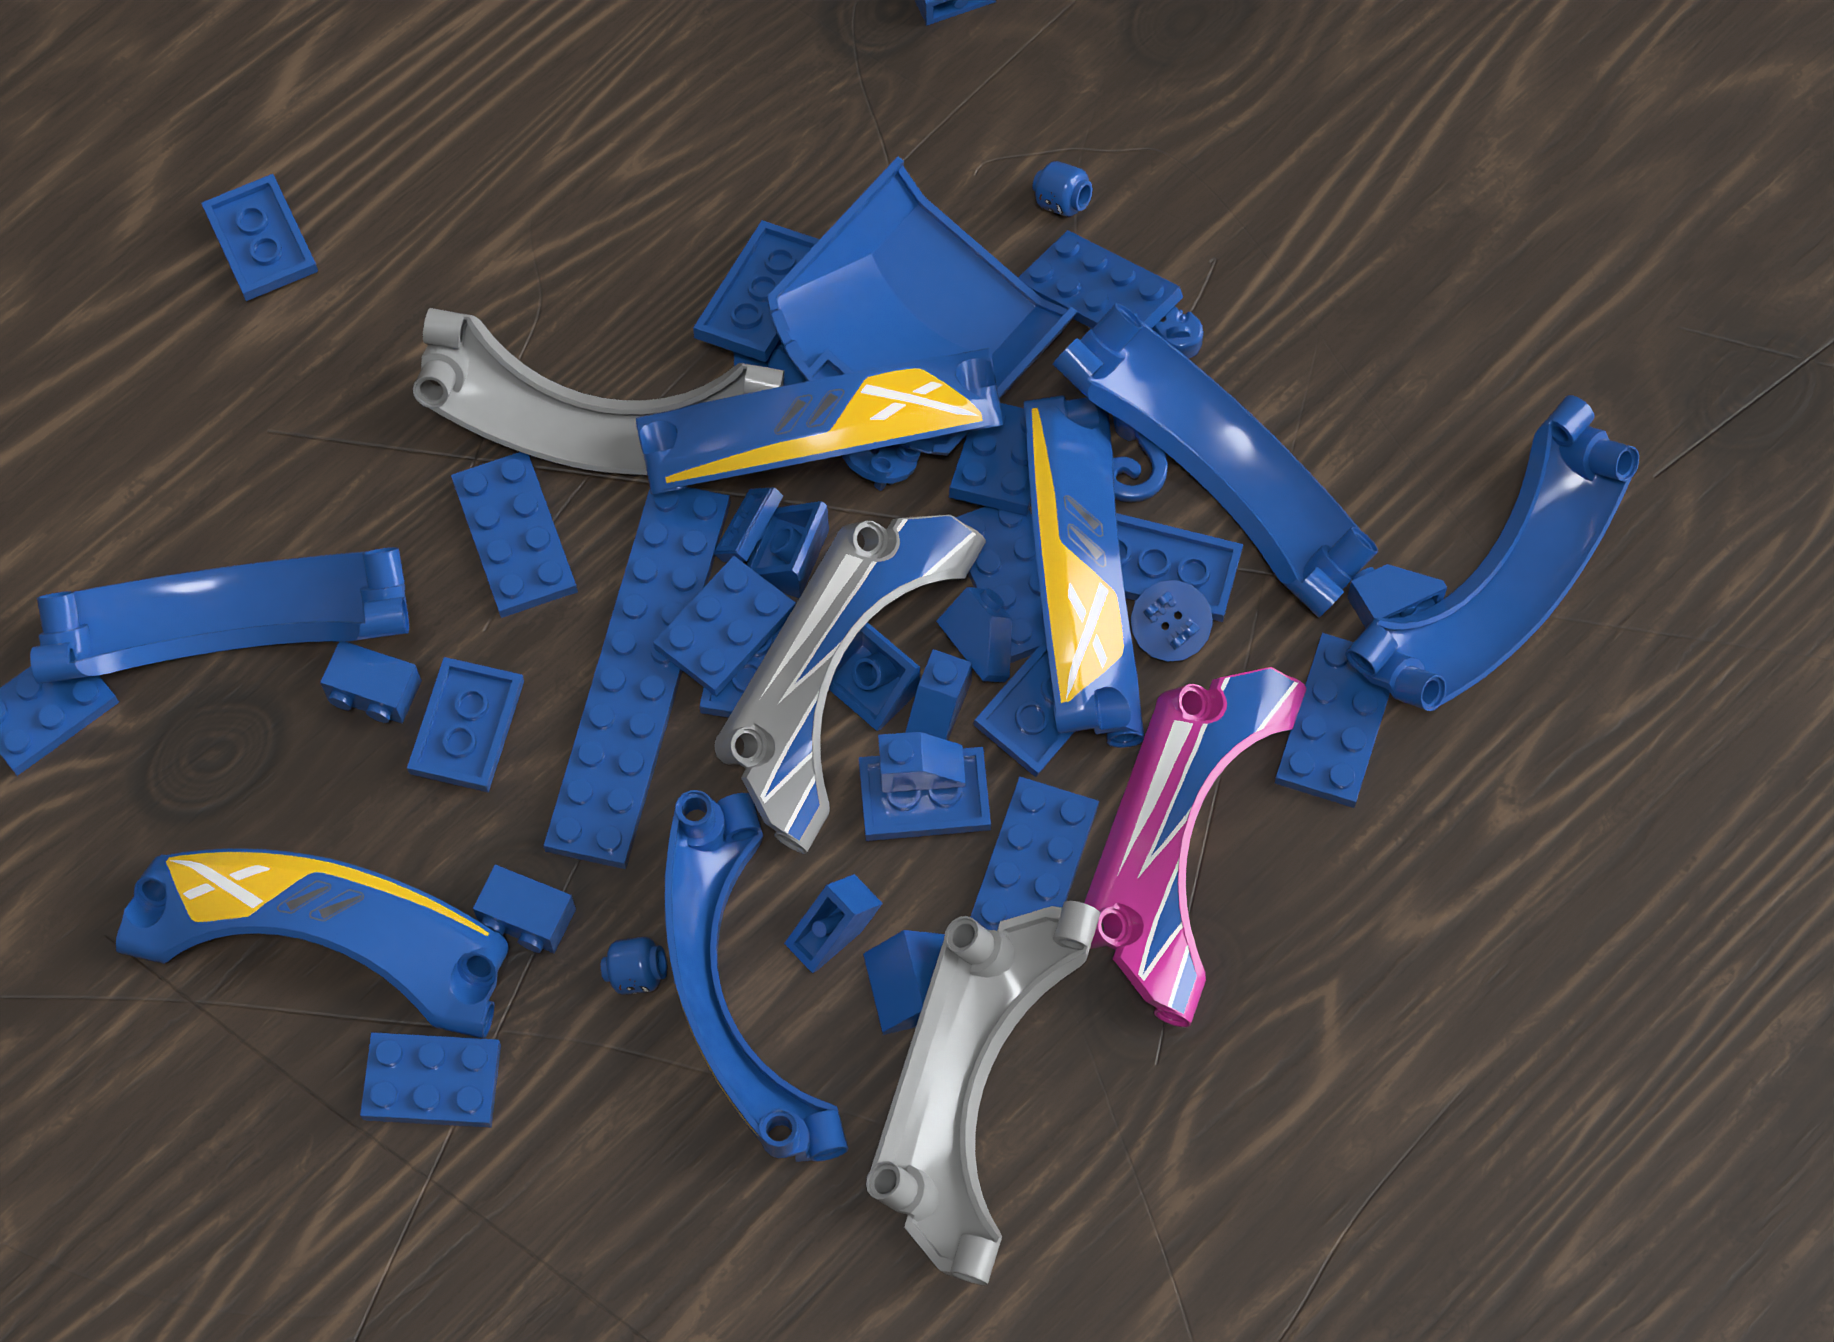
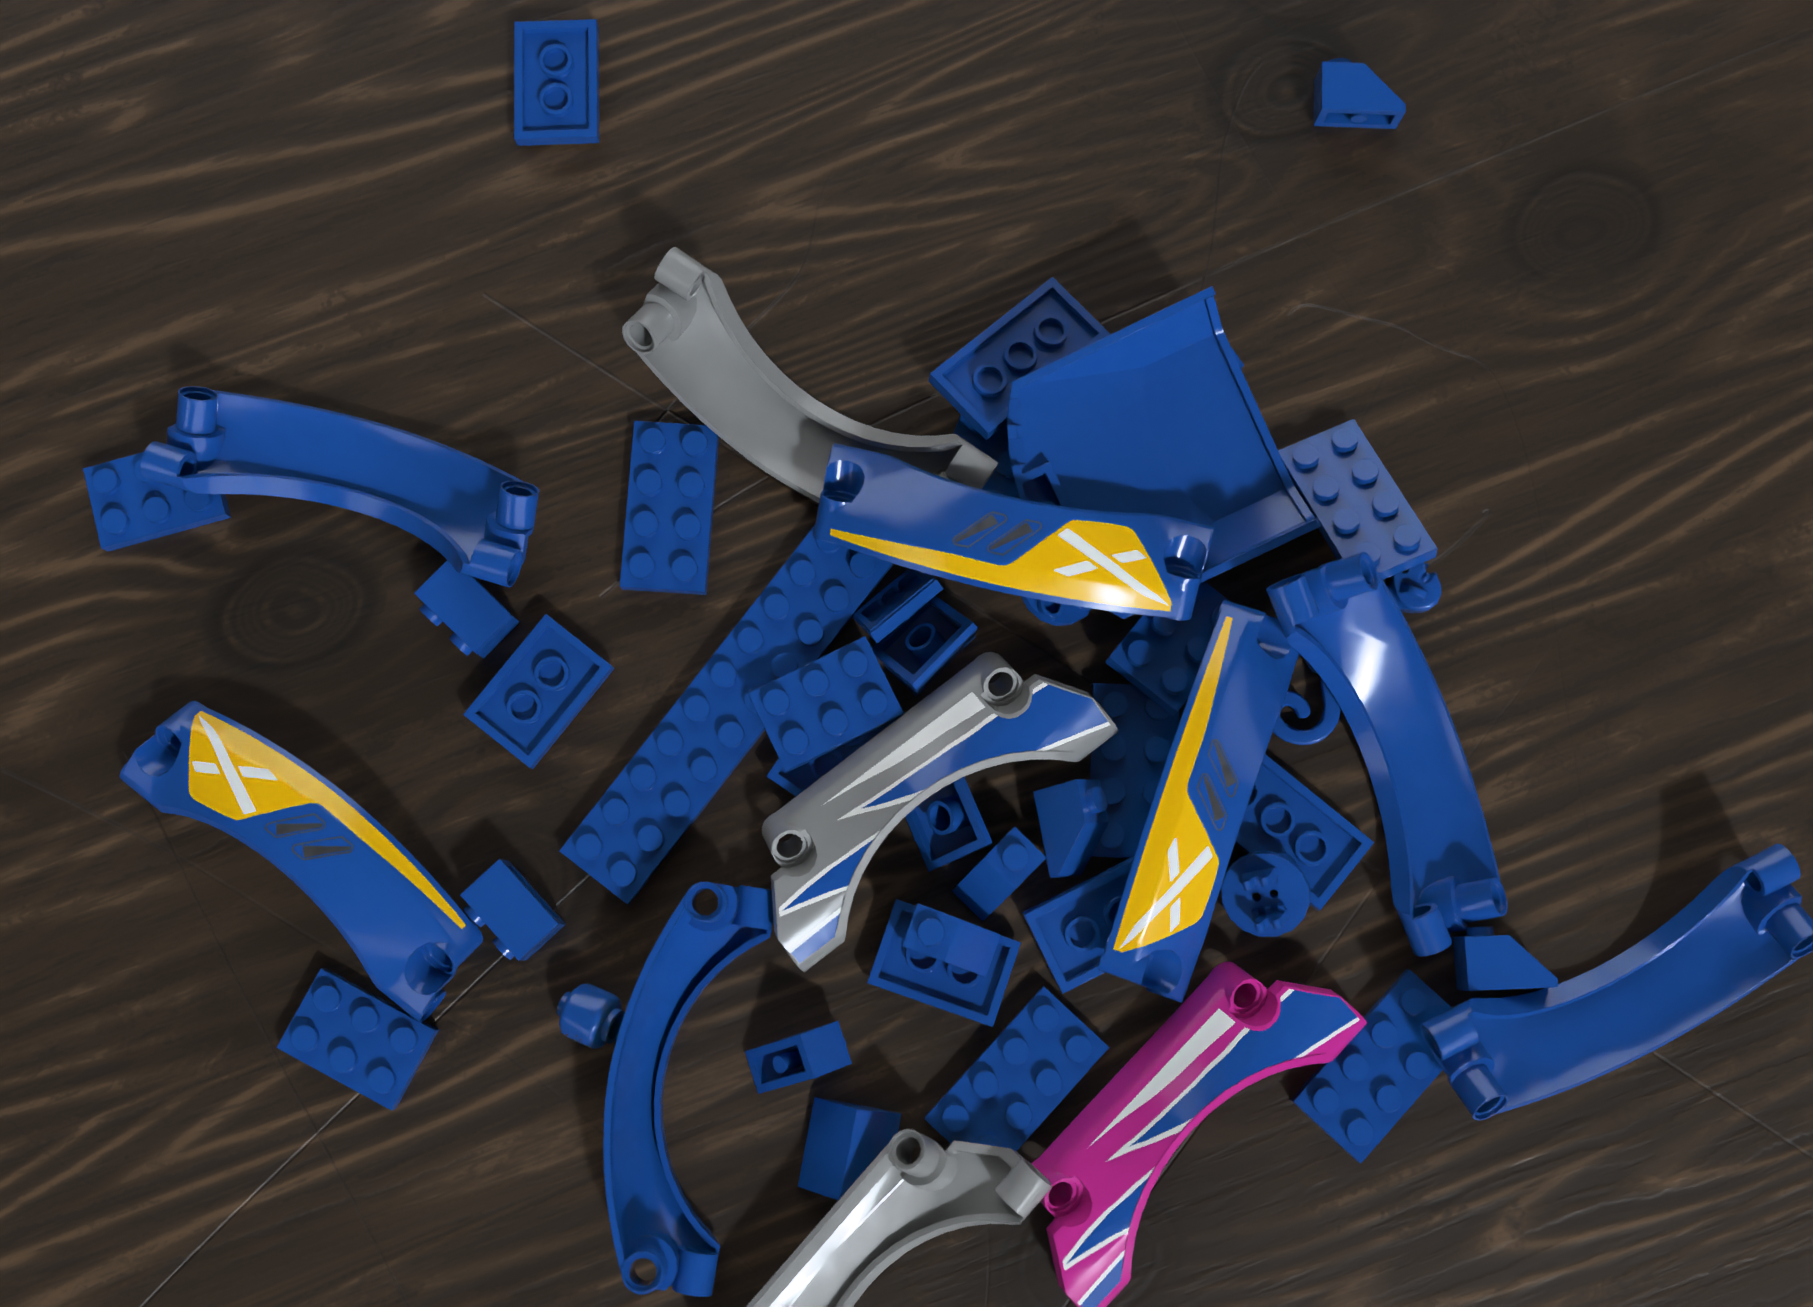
camera: 25 degrees right, 15 degrees up
(1062, 188) = (1368, 372): blue head -> none

